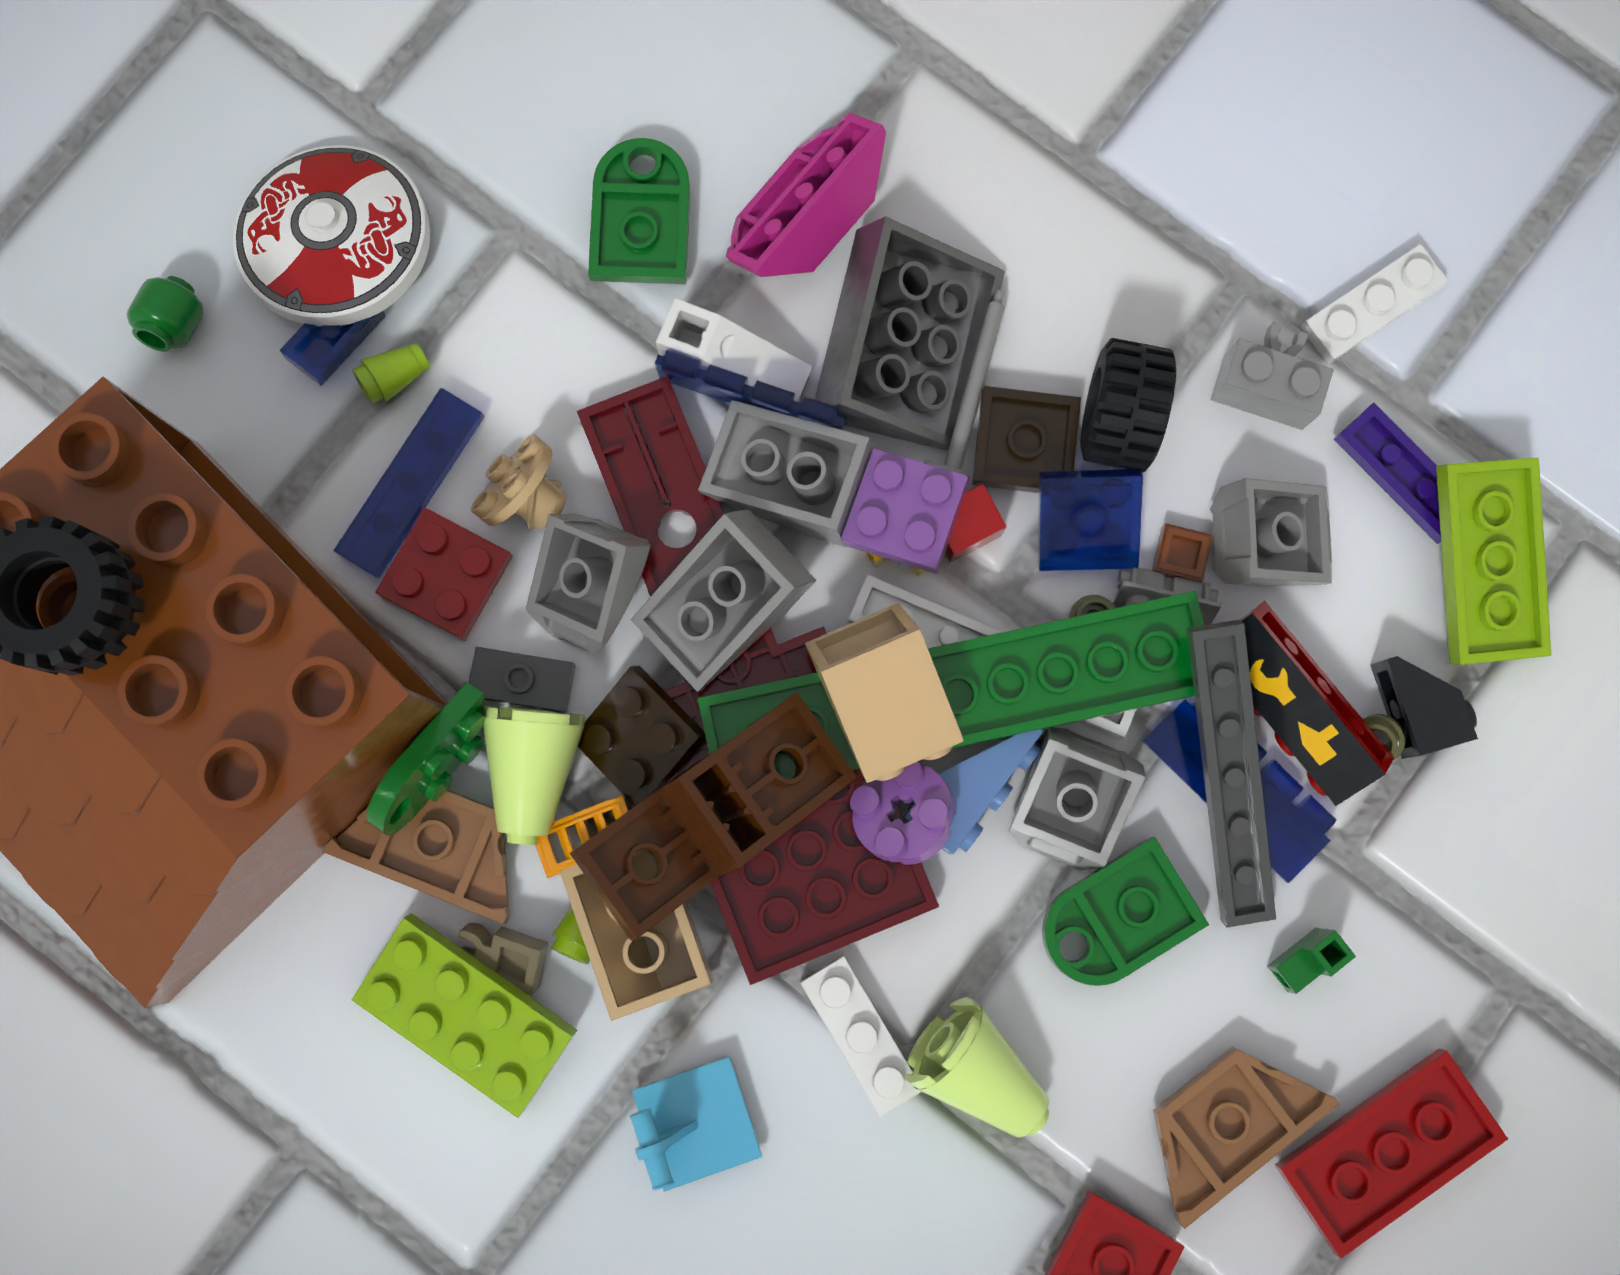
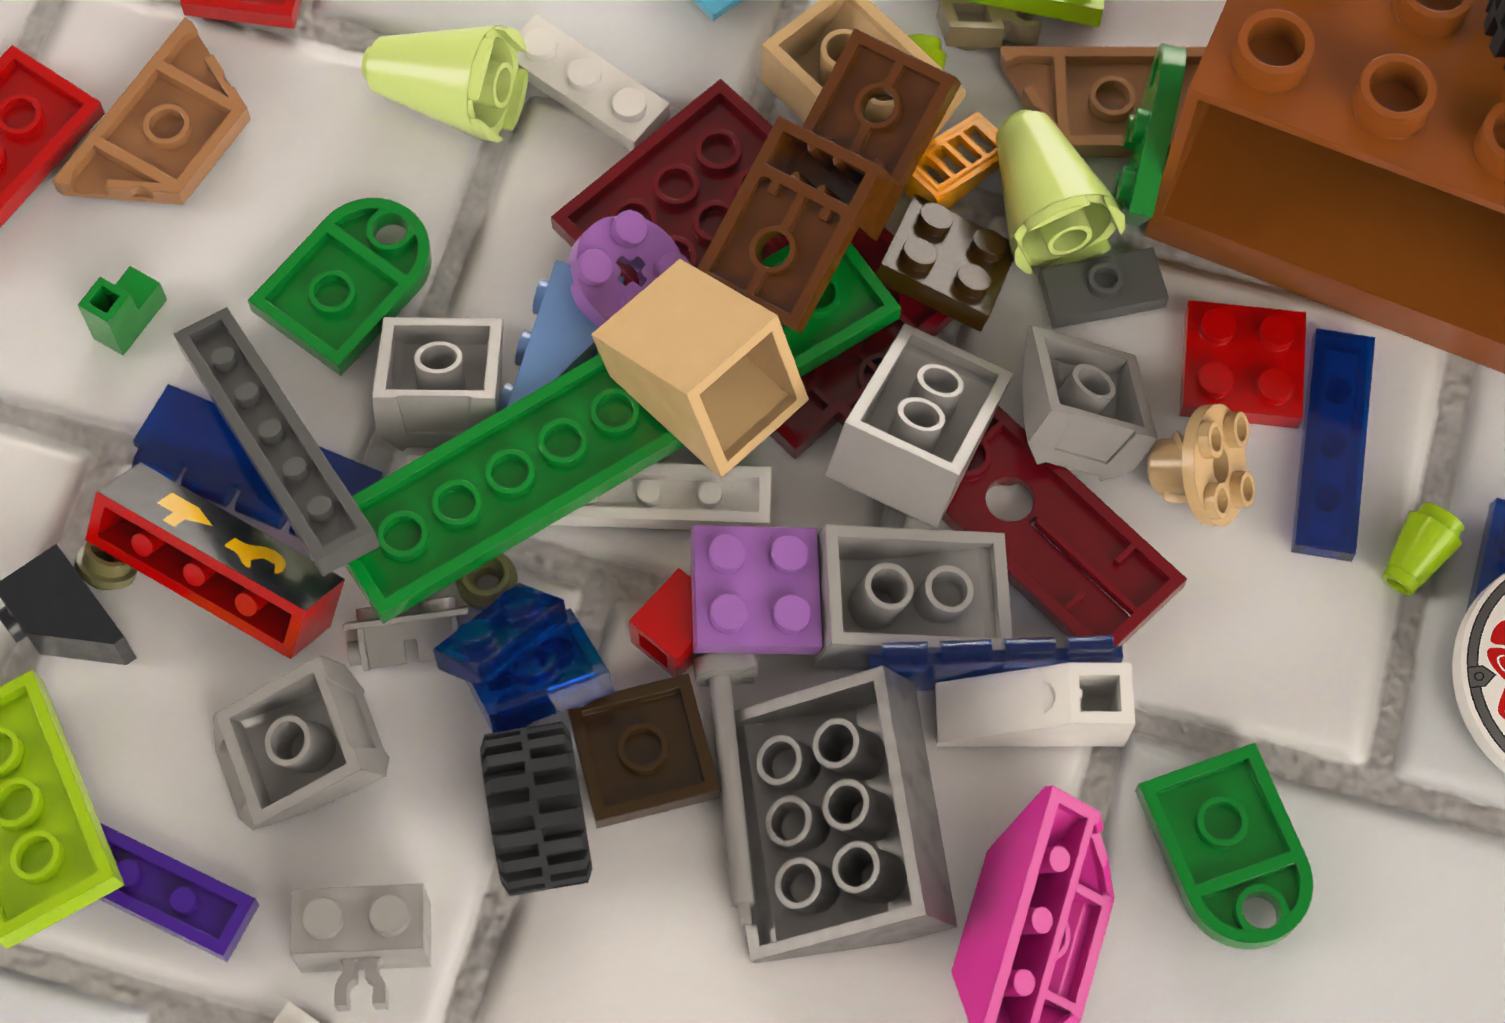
camera: 160 degrees right, 15 degrees down
(1103, 558) = (500, 634): none -> clear blue plate
(1182, 552) = (405, 696): dark orange tile -> none

